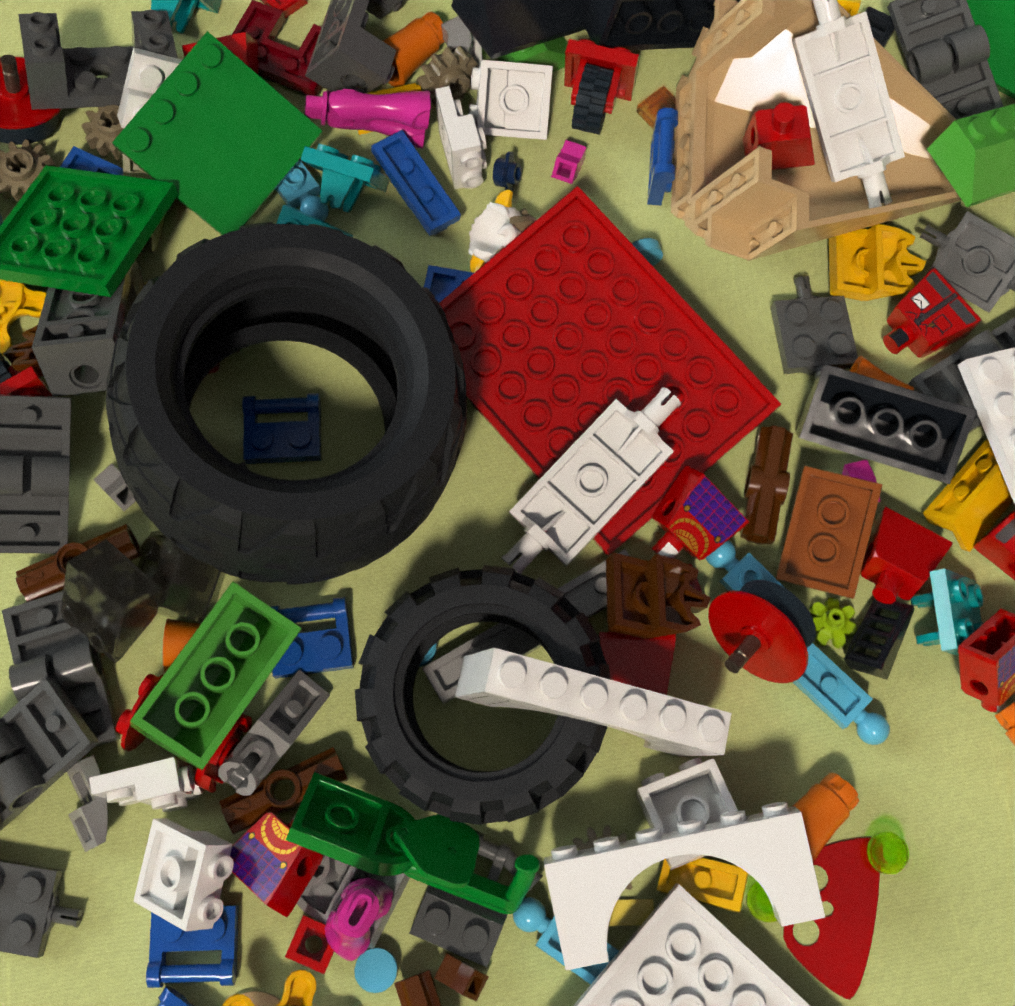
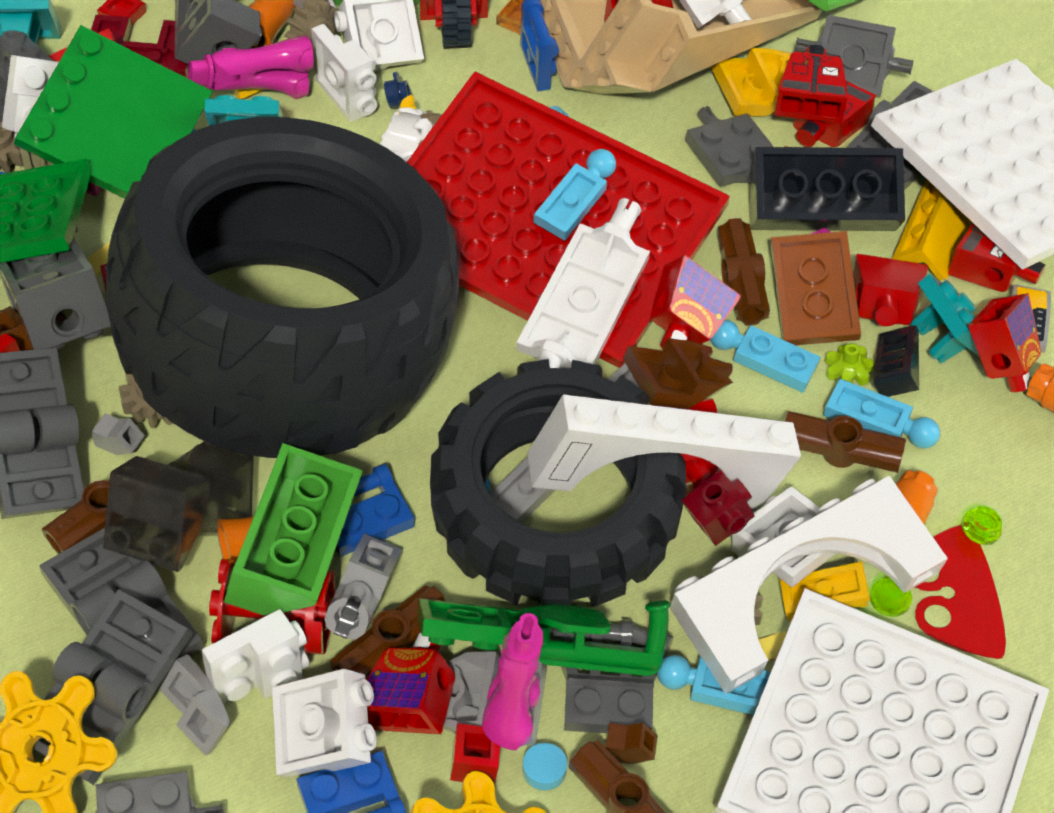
camera: 20 degrees left, 20 degrees down
(416, 183) = (303, 104): blue plate -> none
(569, 162) = (452, 71): dark pink piece -> none
(625, 362) = (576, 194): none -> medium azure plate
(630, 768) = (719, 506): none -> dark red brick
(763, 631) = (790, 370): red piece -> none
(810, 728) = (846, 442): none -> reddish brown piece
(917, 297) = (813, 87): none -> red torso

